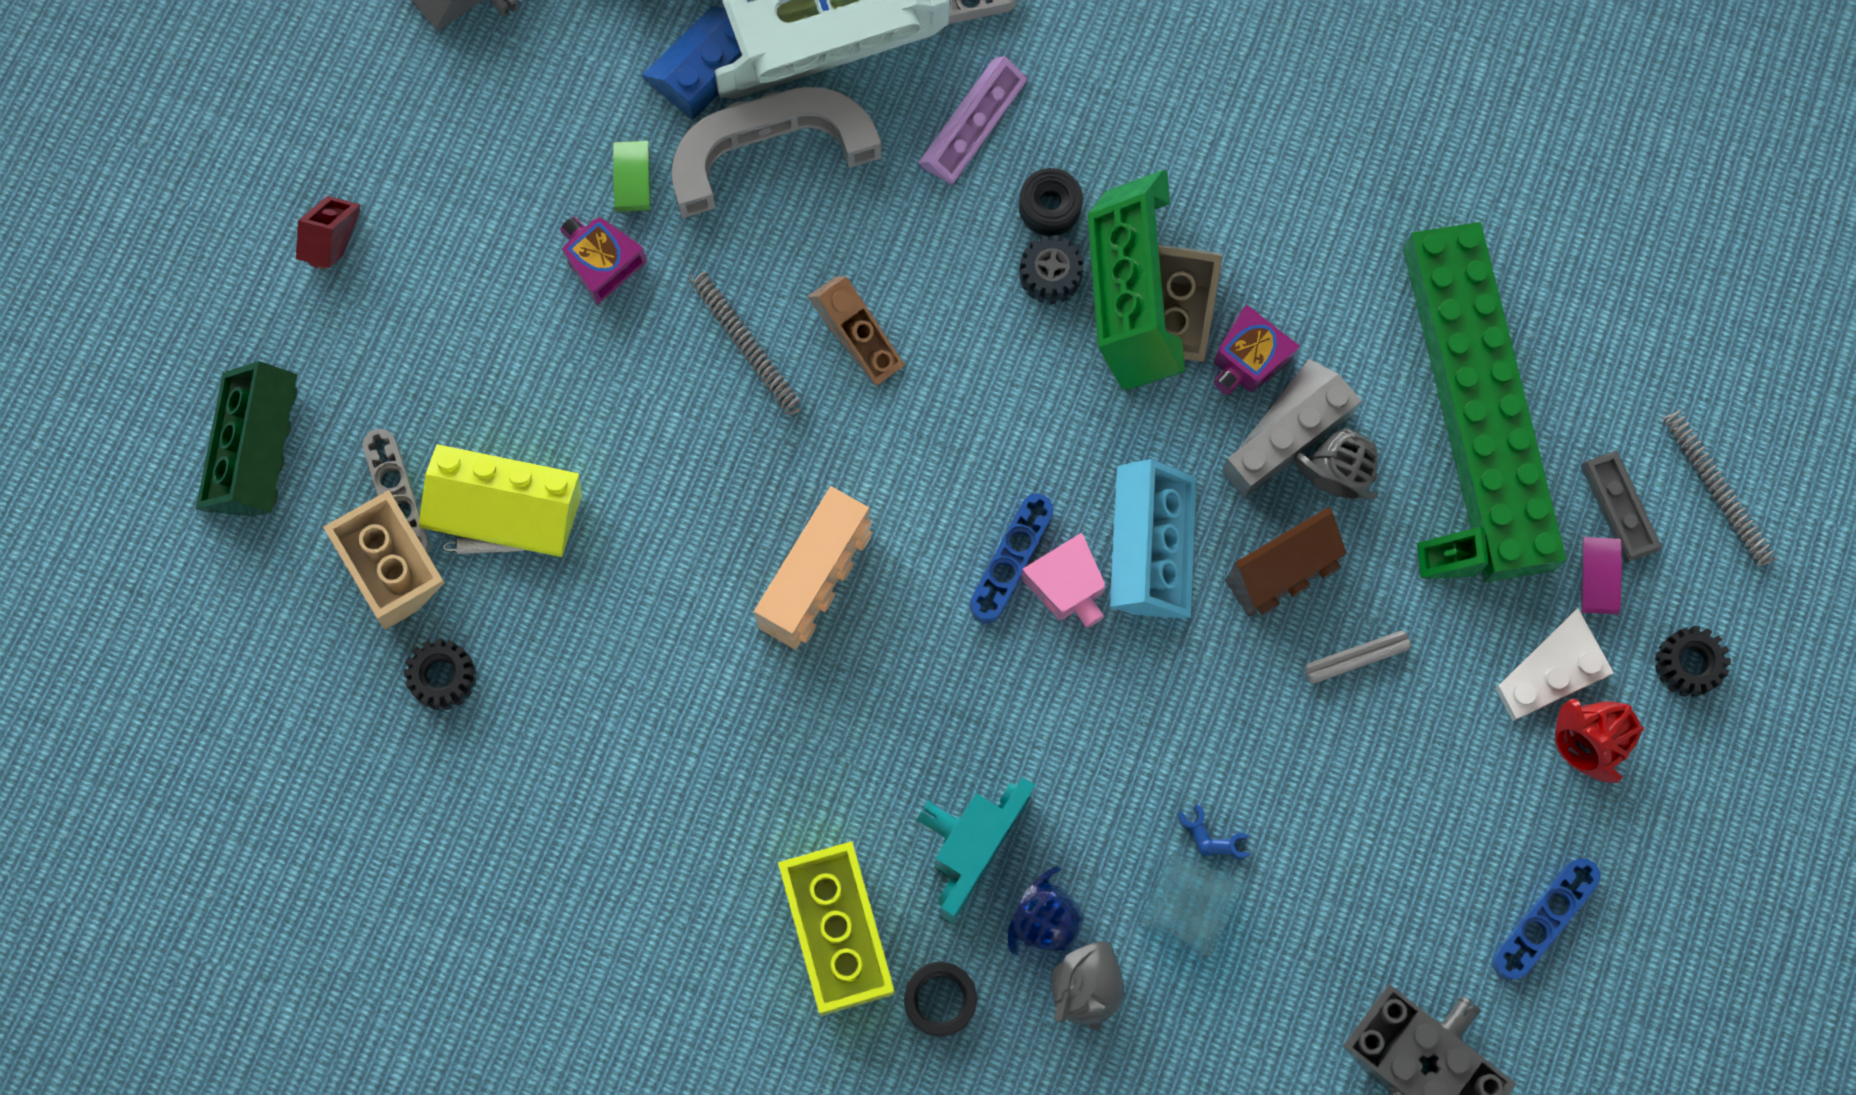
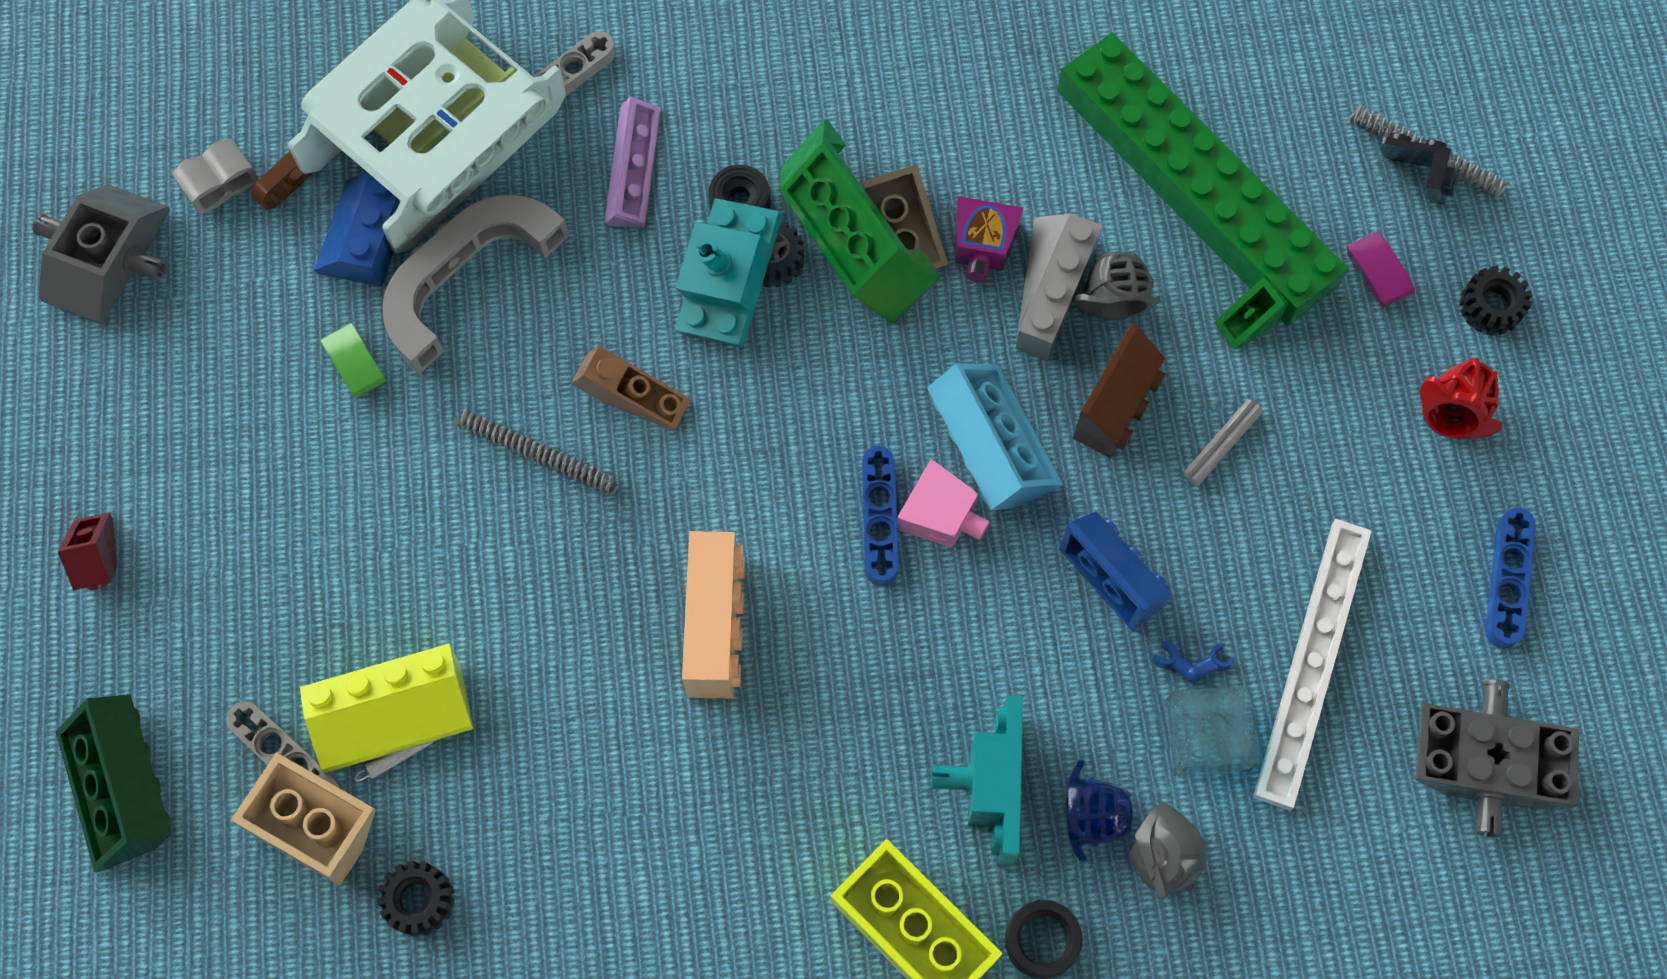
camera: 25 degrees left, 5 degrees down
(600, 256) = (362, 443): torso -> none
(997, 265) = (725, 271): none -> teal brick
(1190, 717) = (1114, 569): none -> blue slope
(1317, 896) = (1312, 665): none -> white plate
(1555, 669) = (1389, 366): white wing -> none
(1621, 506) = (1359, 205): dark grey tile -> none
(1709, 519) = (1432, 154): none -> black bracket

